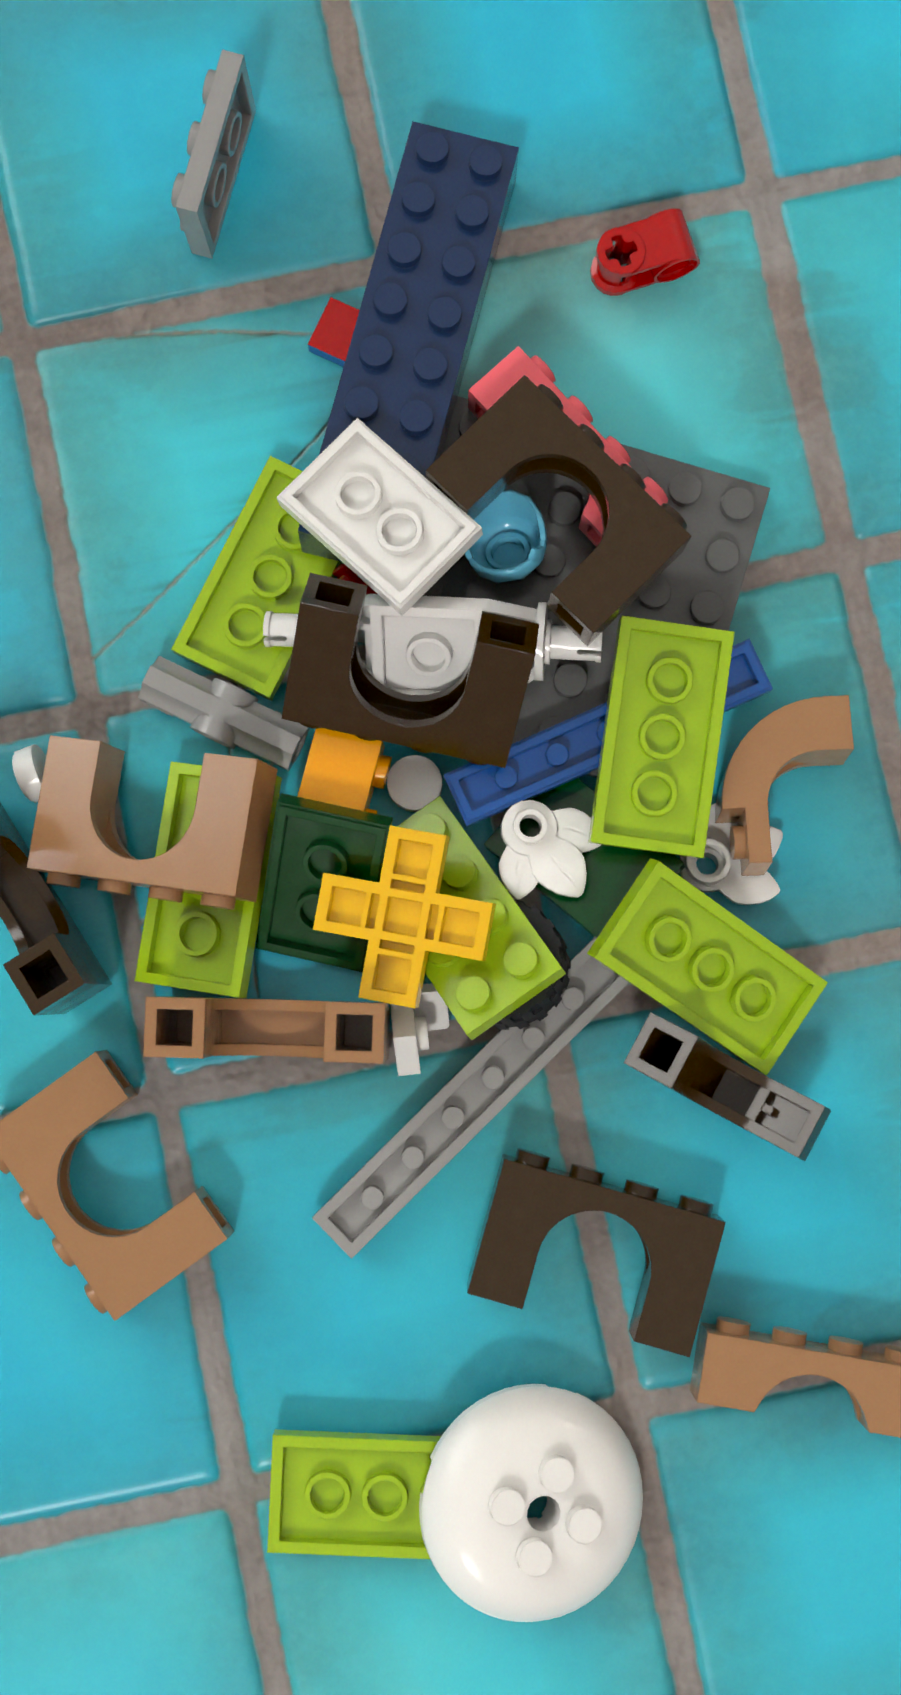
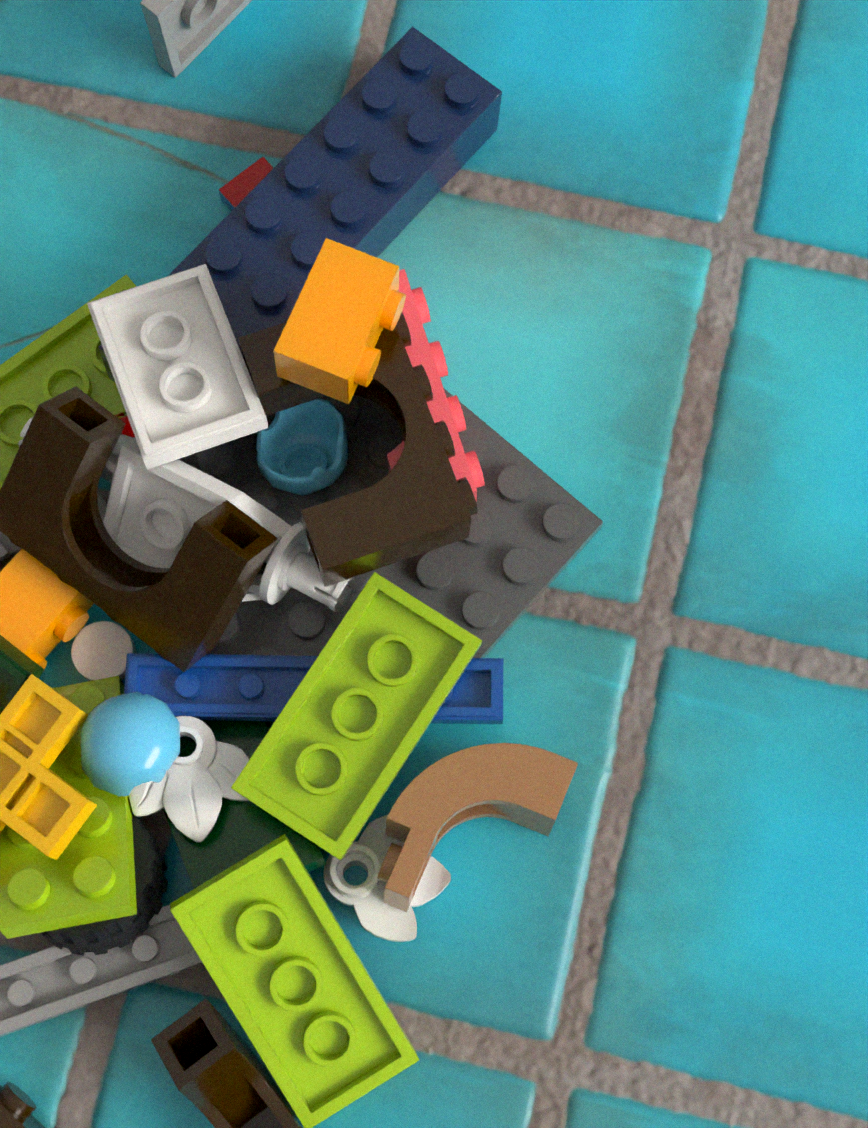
camera: 25 degrees right, 10 degrees down
(490, 844) = (129, 742): none -> medium azure hair
(514, 418) = (339, 321): none -> light orange brick
(653, 249) = (589, 246): red piece -> none

